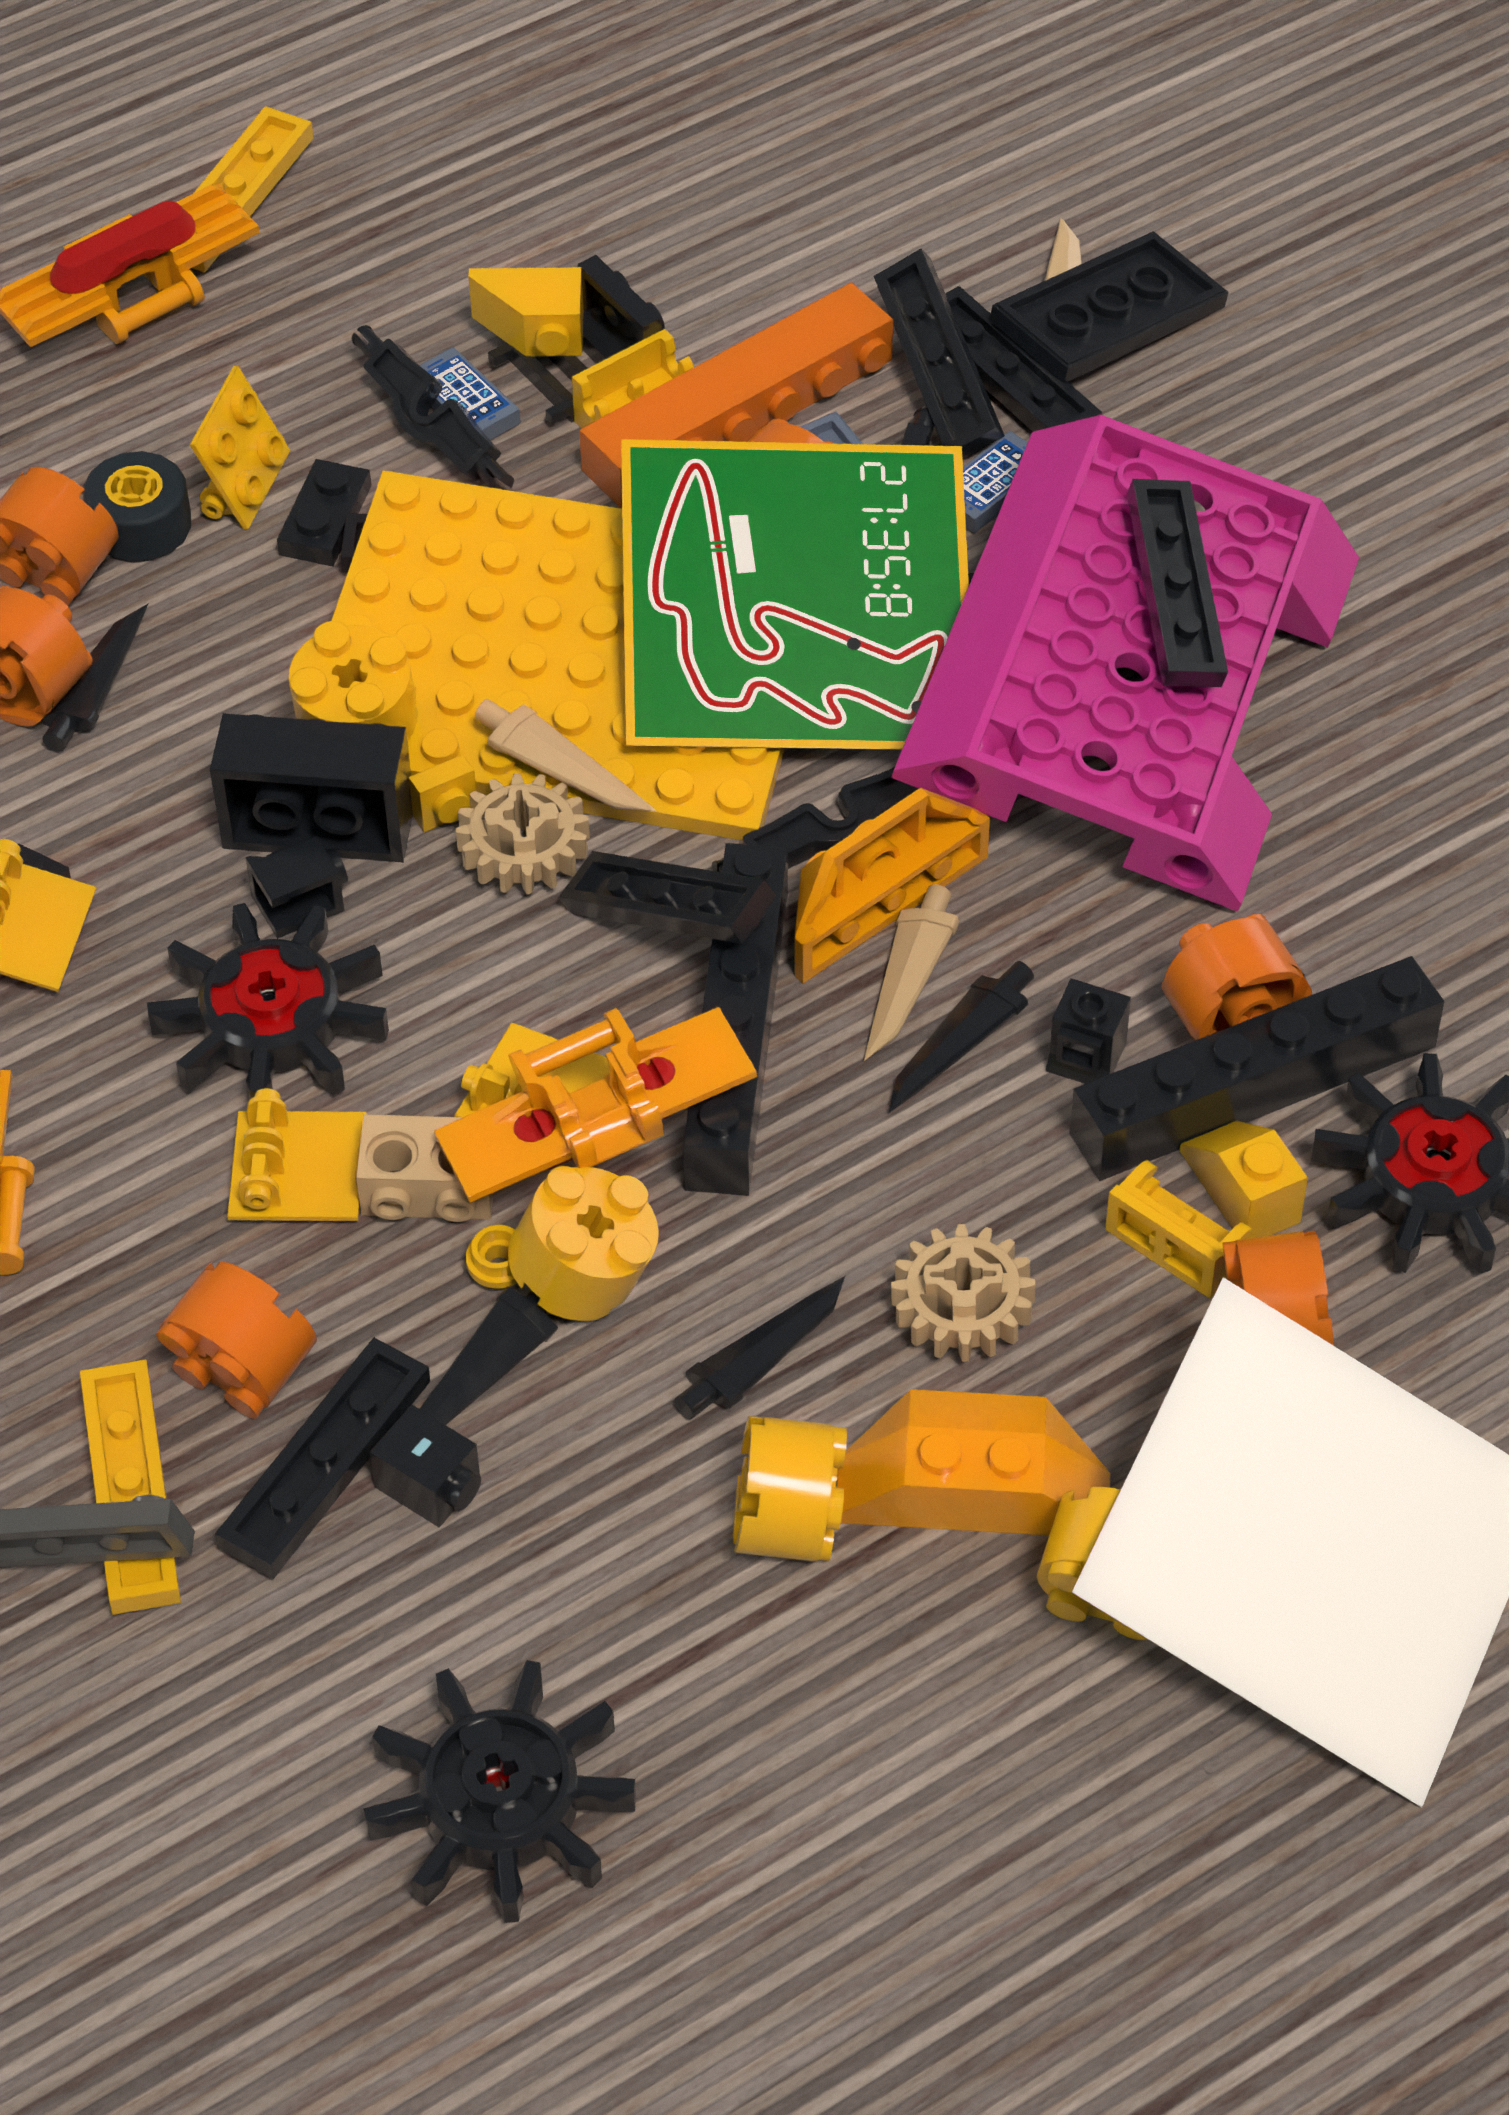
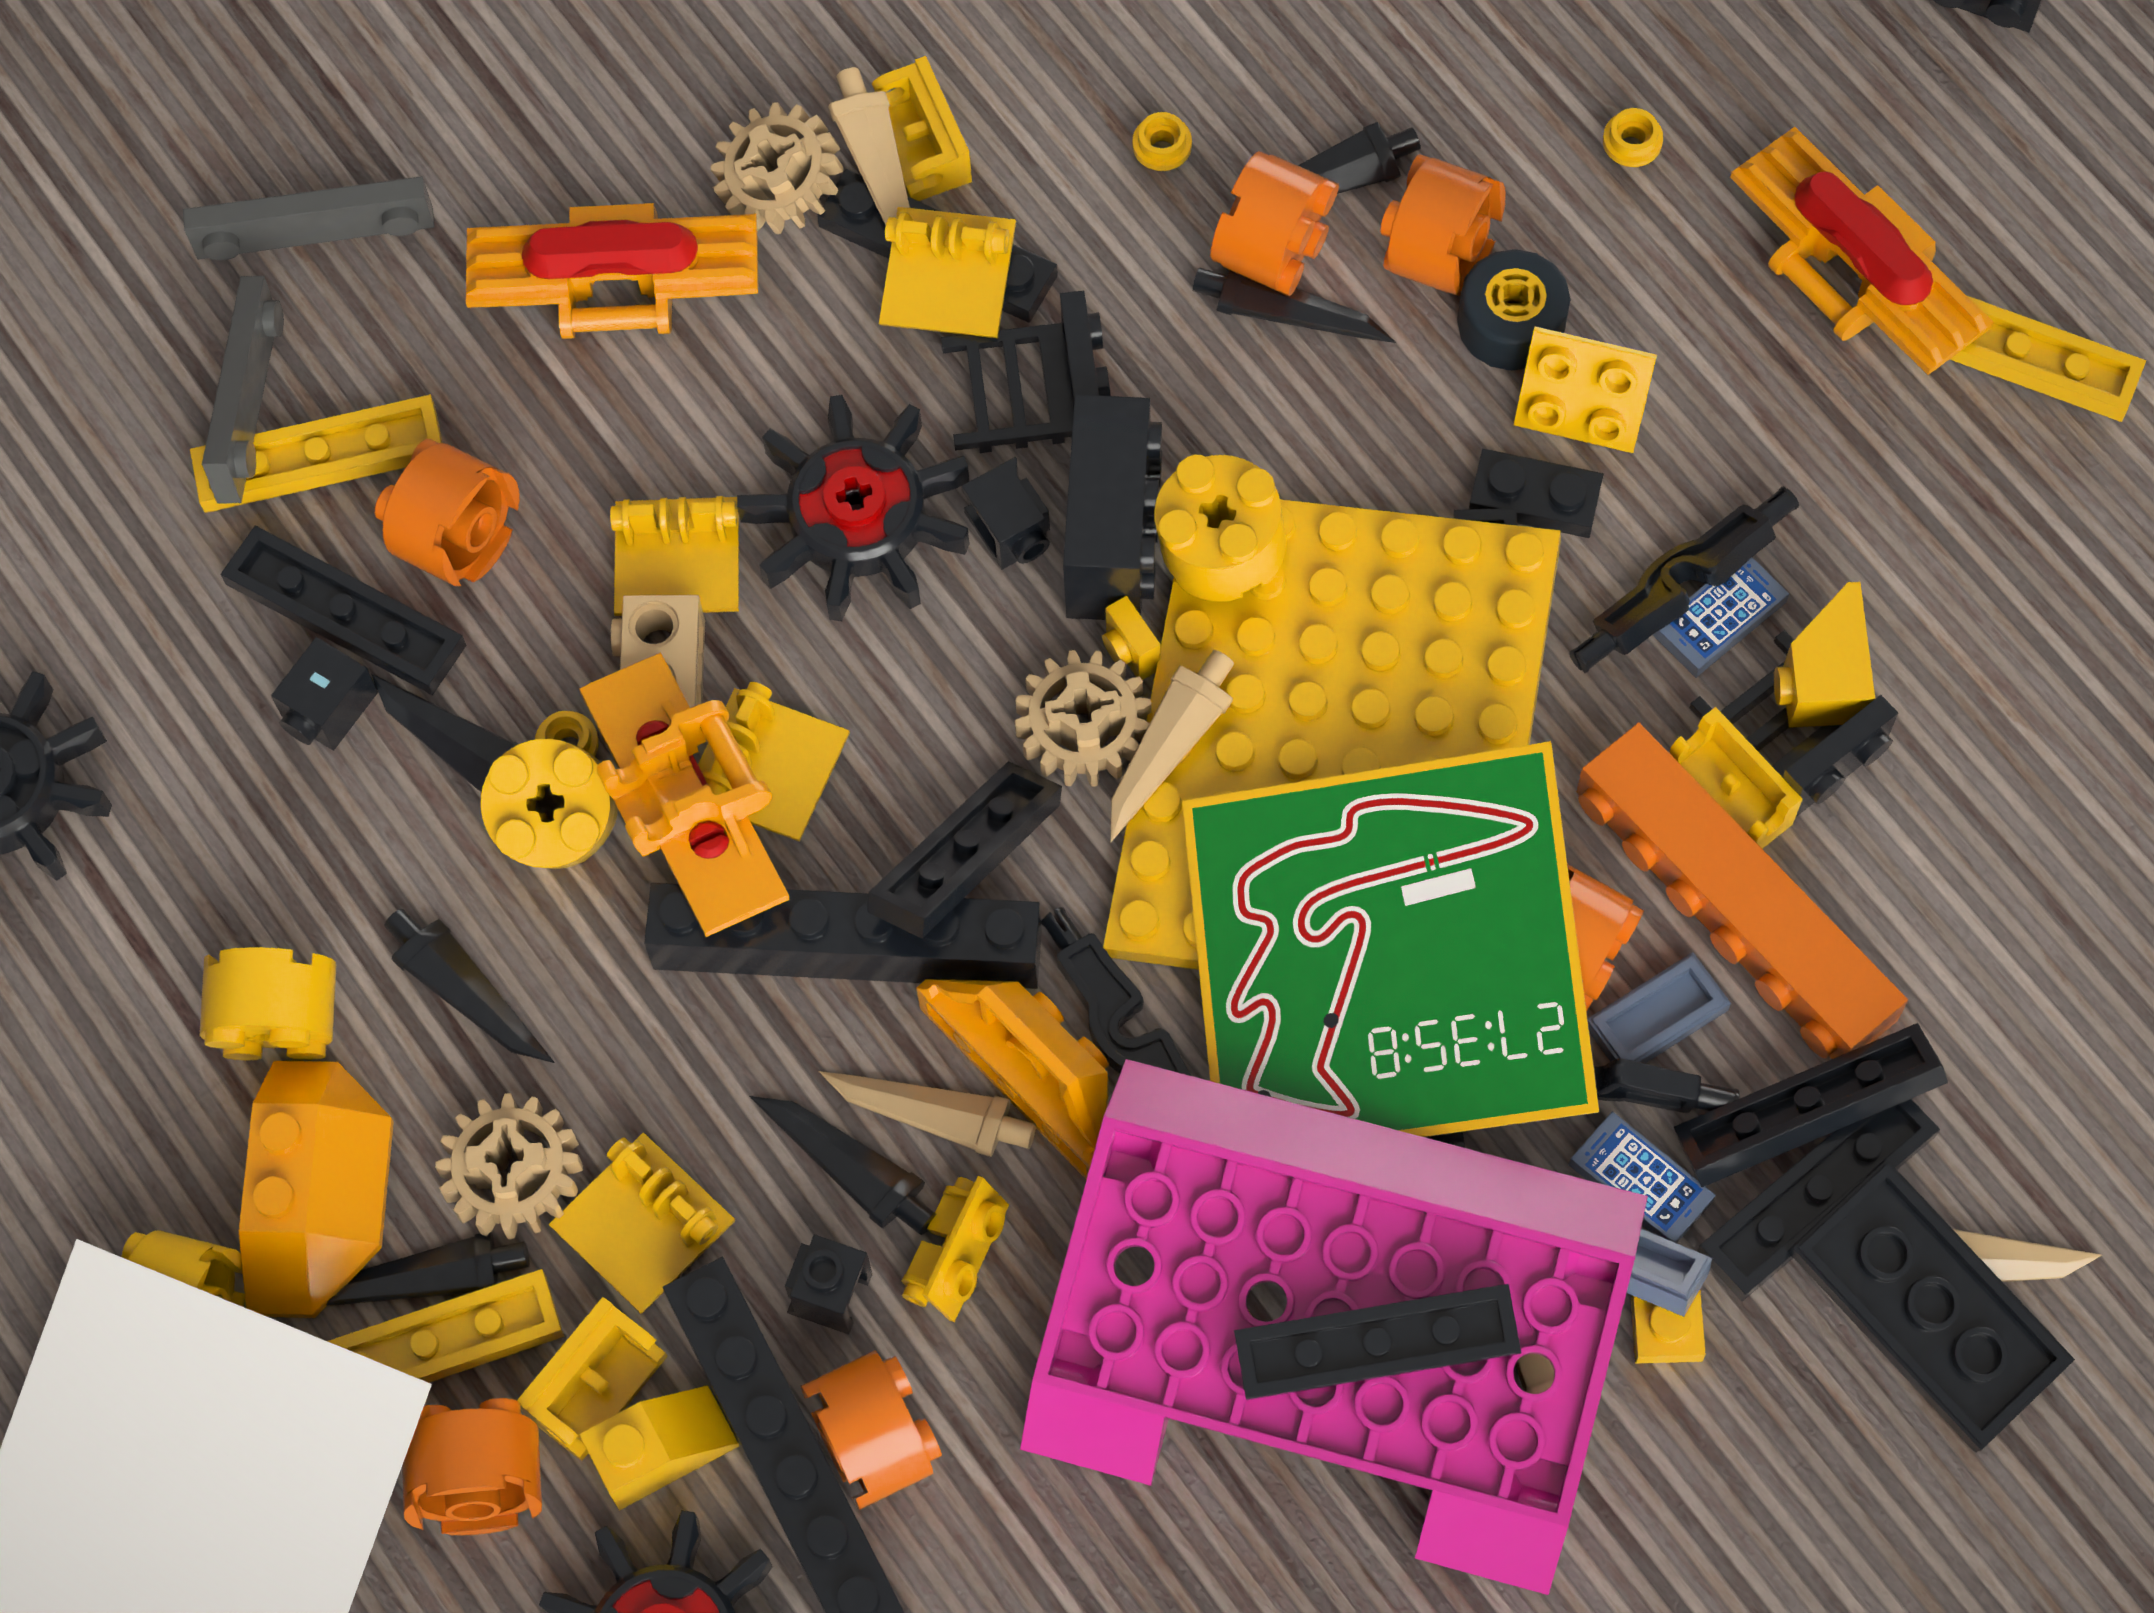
camera: 90 degrees right, 15 degrees up
(143, 830) = (1066, 368): none -> black plate
(1019, 1189) = (641, 1221): none -> yellow hinge
(1027, 933) = (970, 1220): none -> yellow hinge
(1063, 1359) = (436, 1272): none -> black bar
(1129, 1330) = (463, 1330): none -> yellow plate

